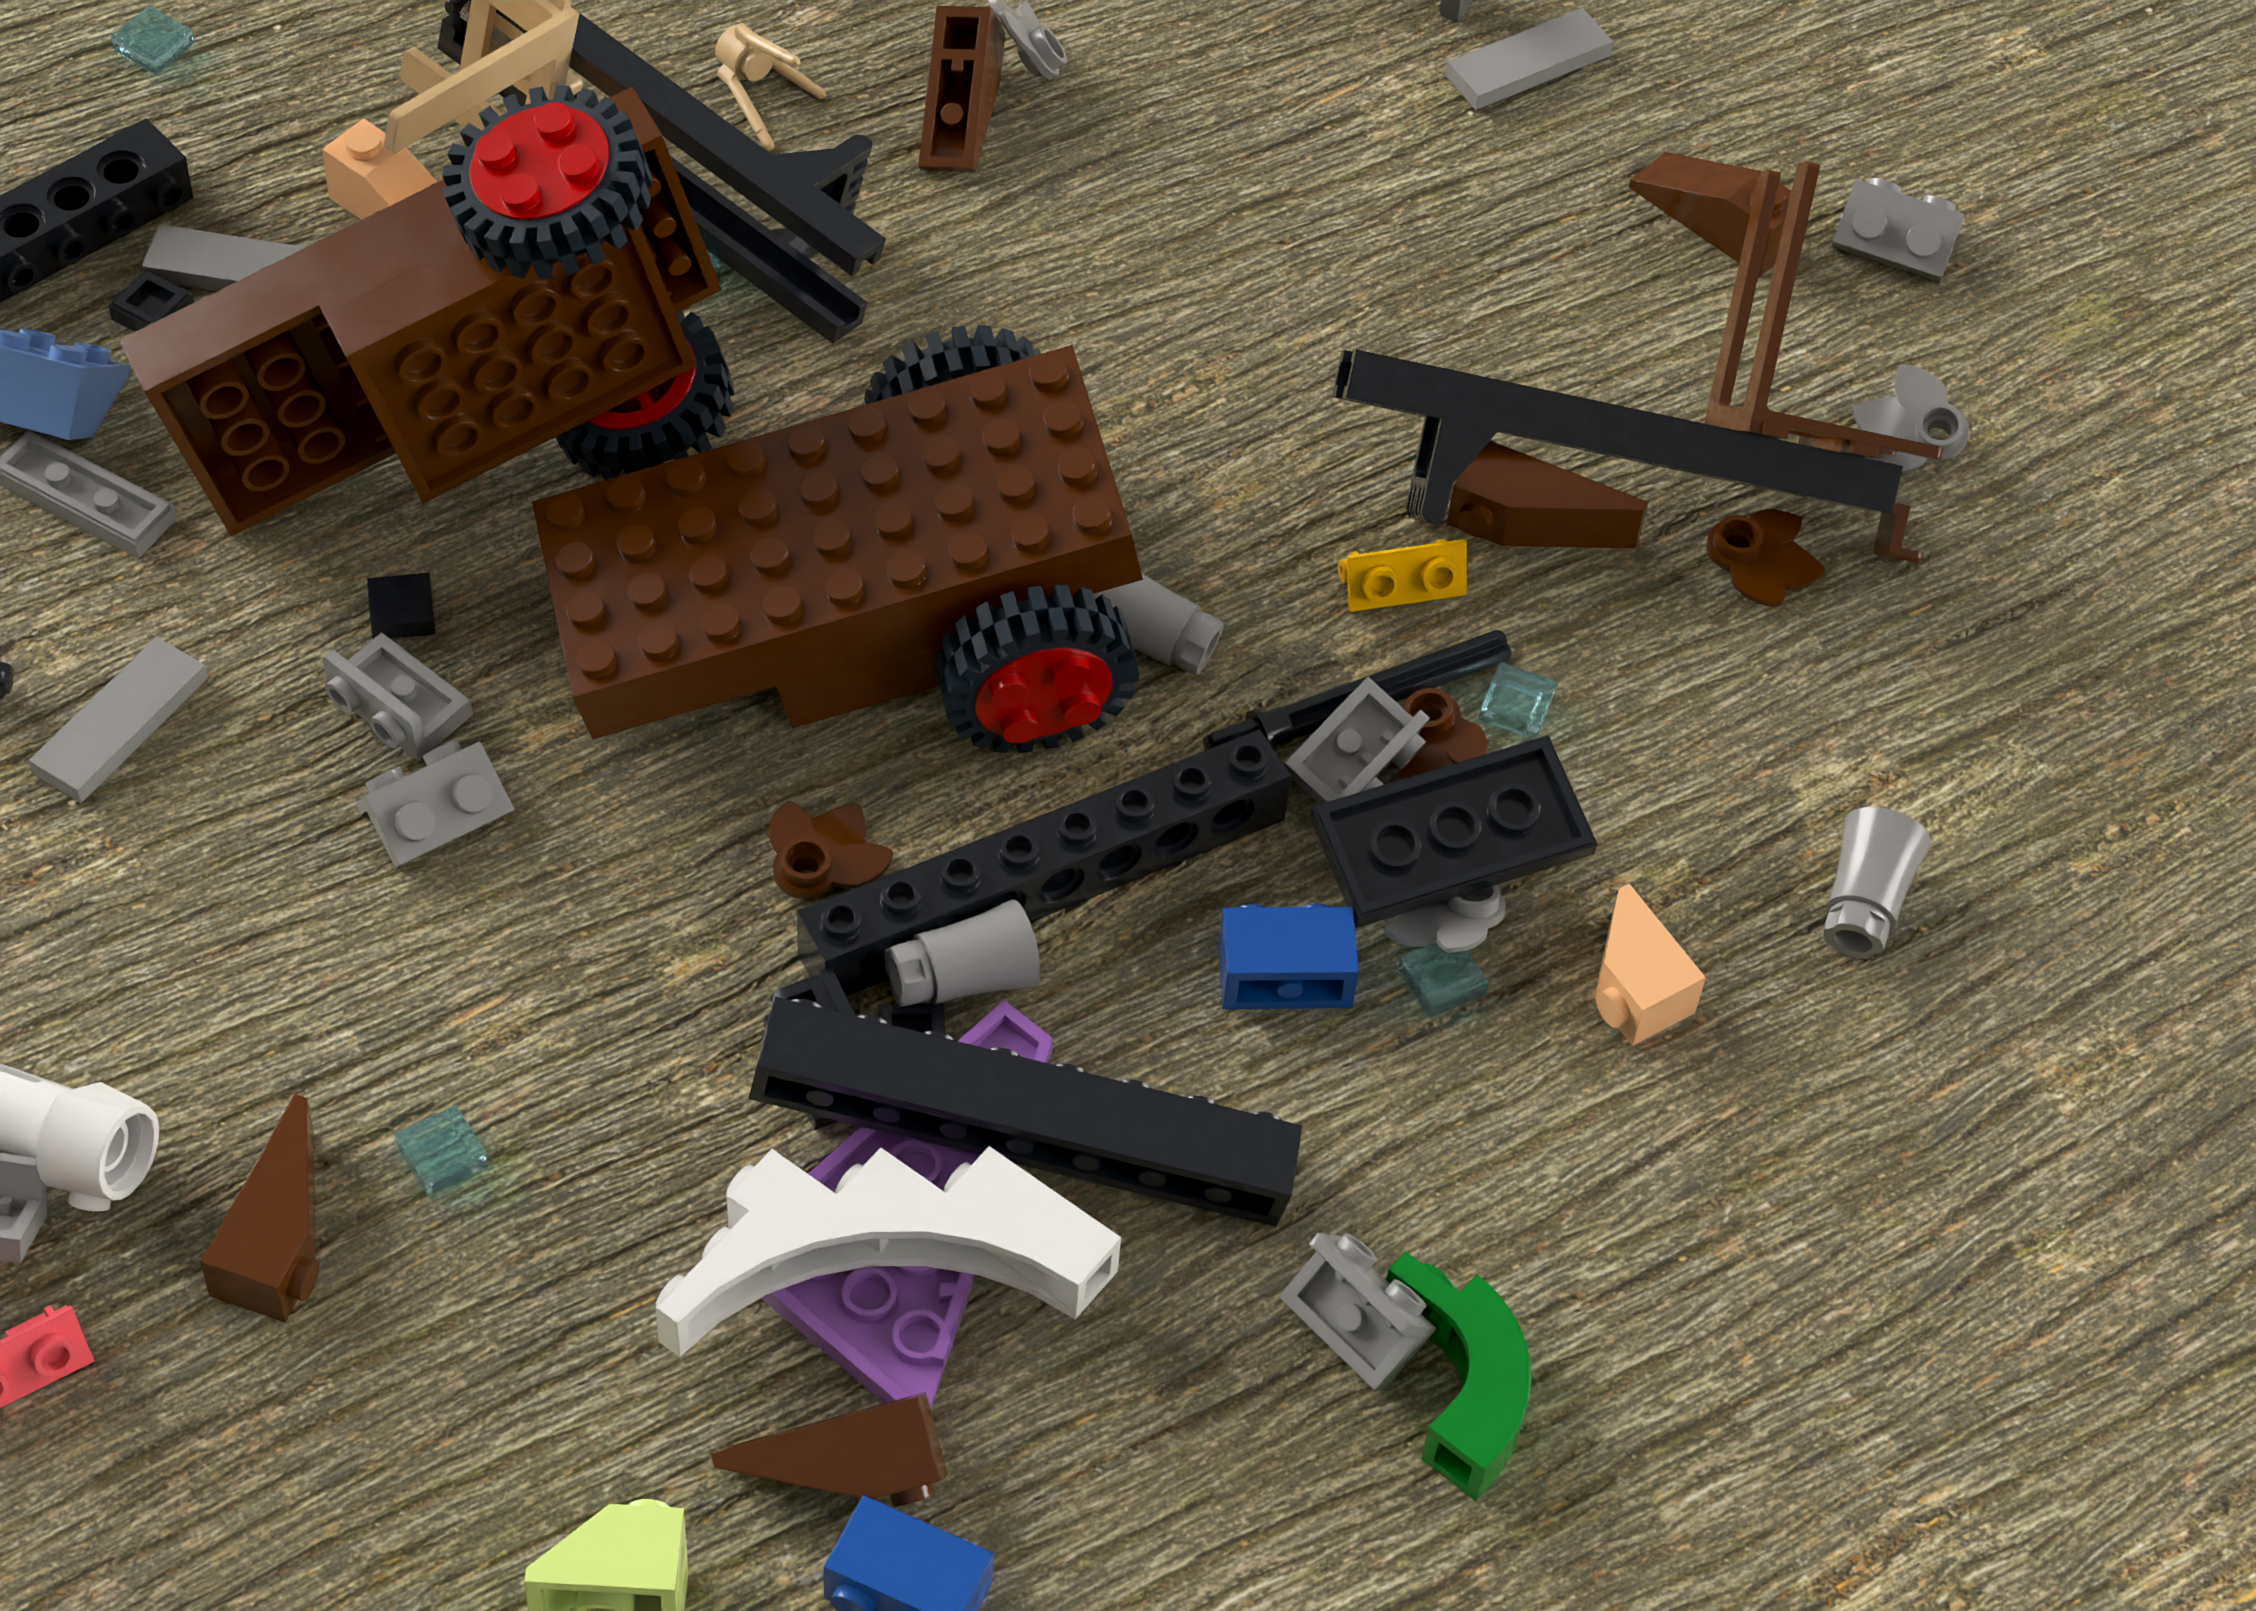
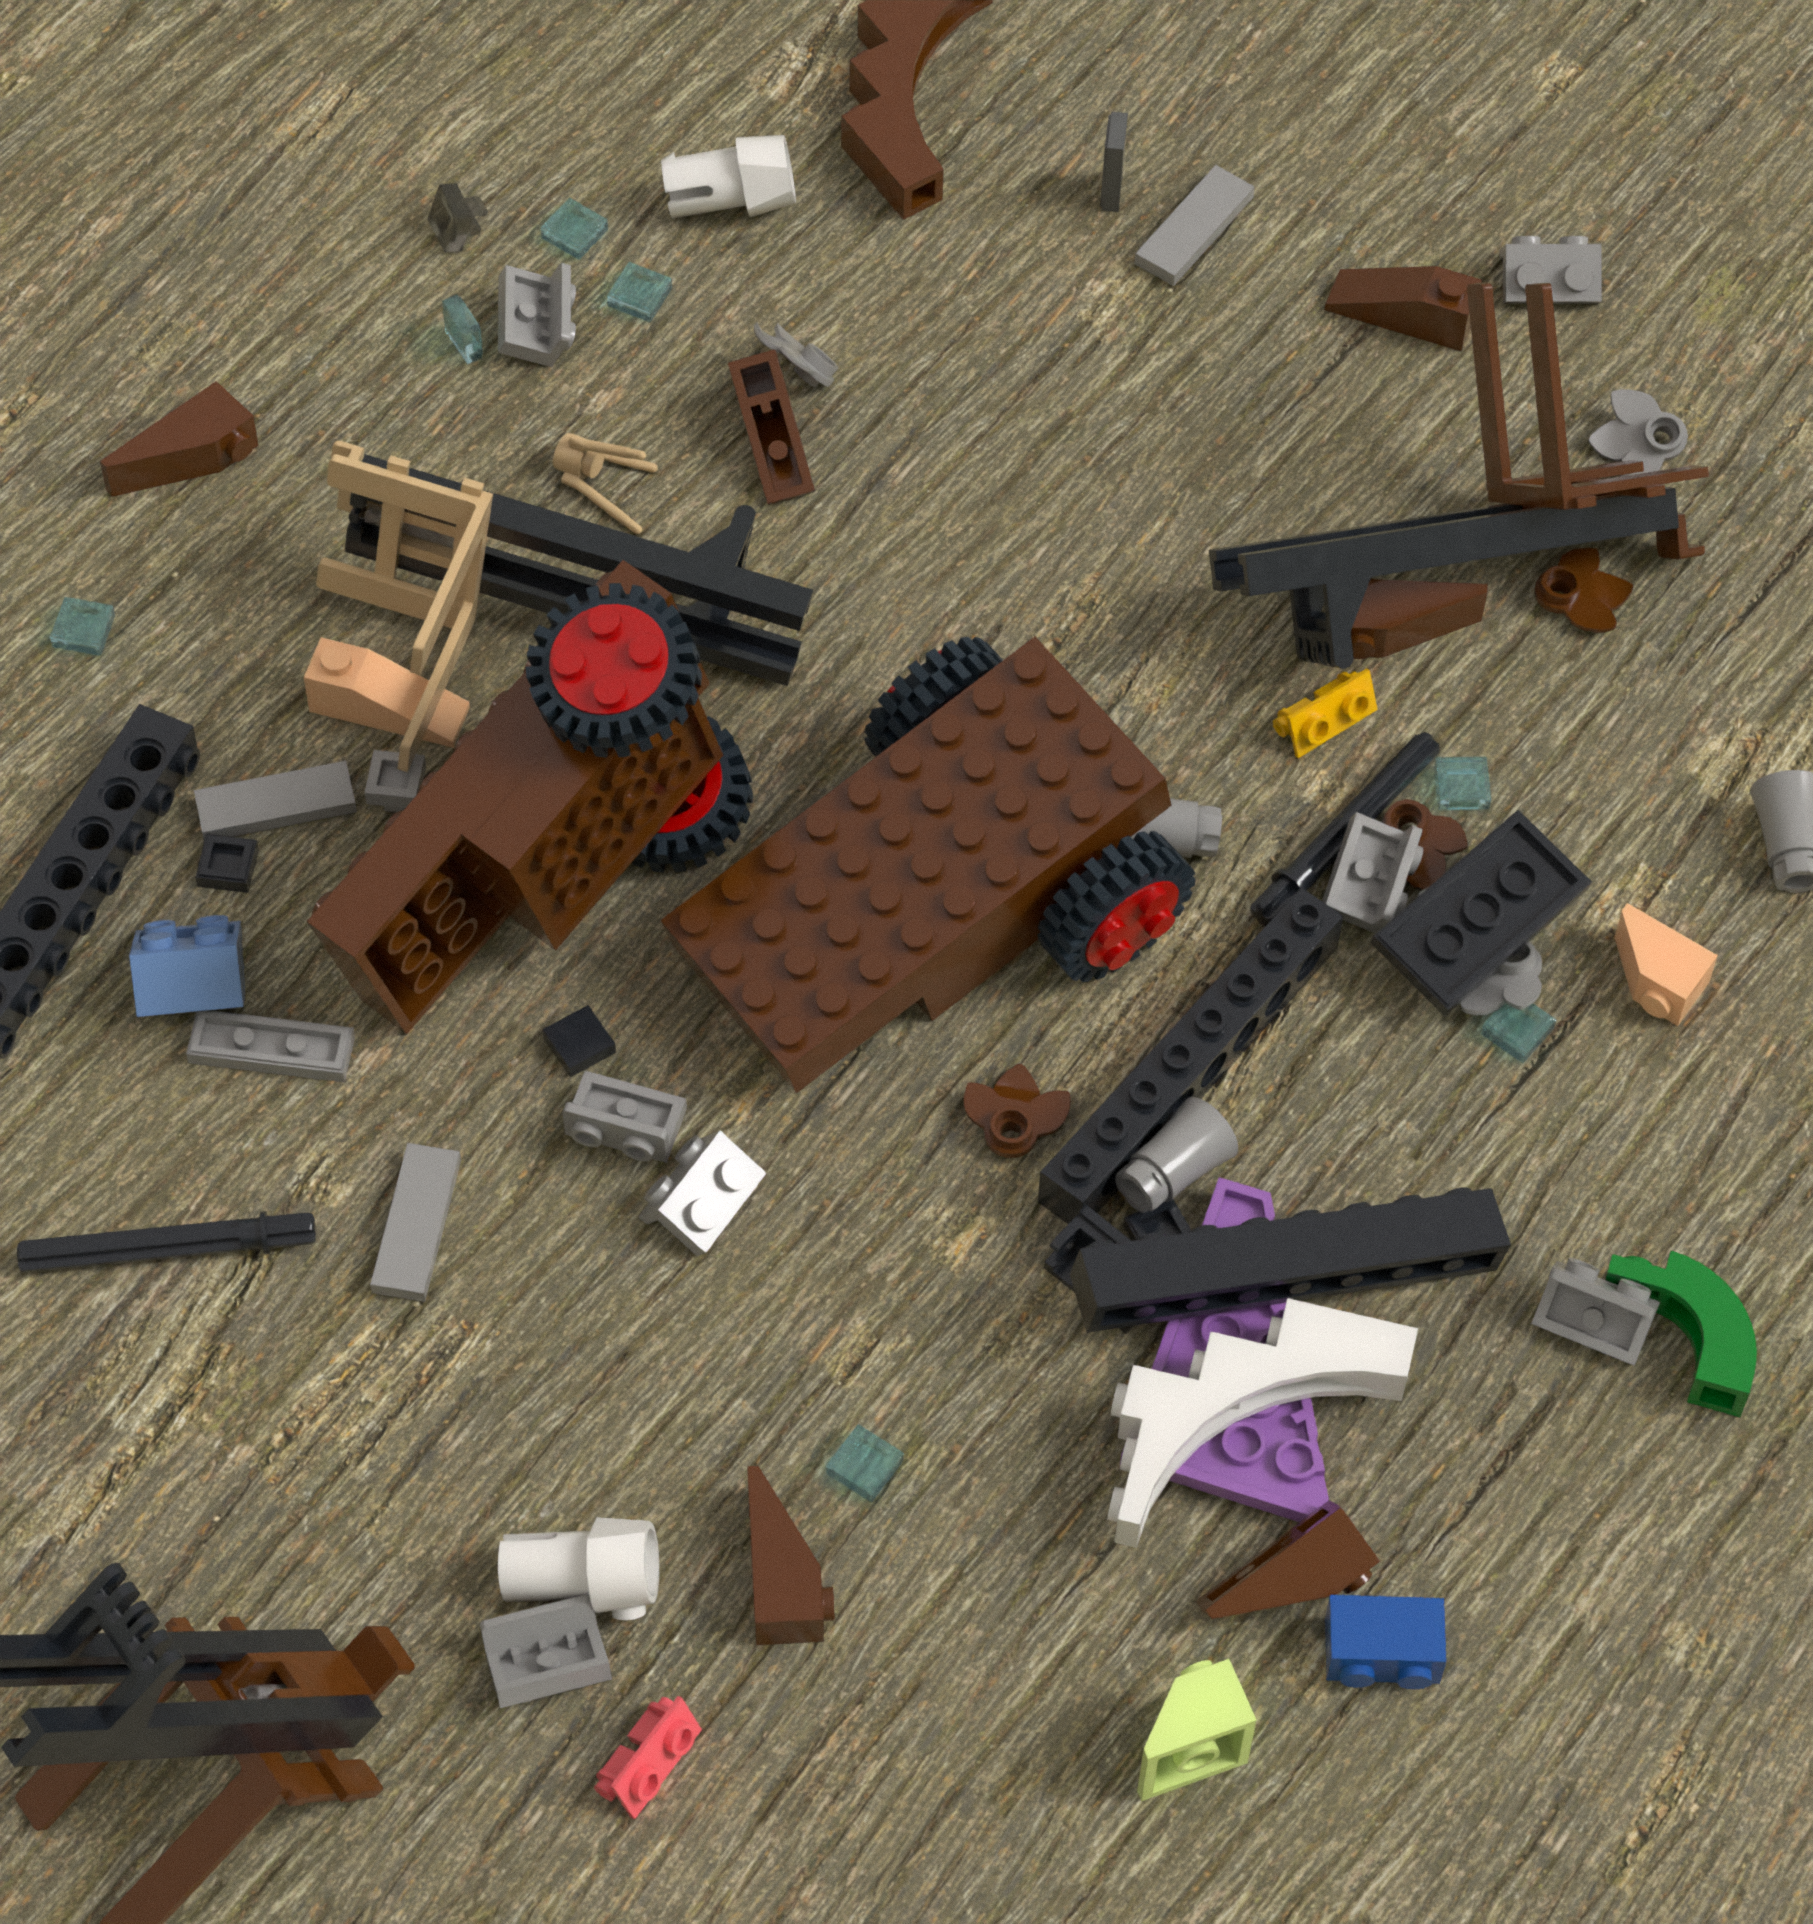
camera: 20 degrees left, 5 degrees up
(1287, 957) = (1404, 1058): blue brick -> none

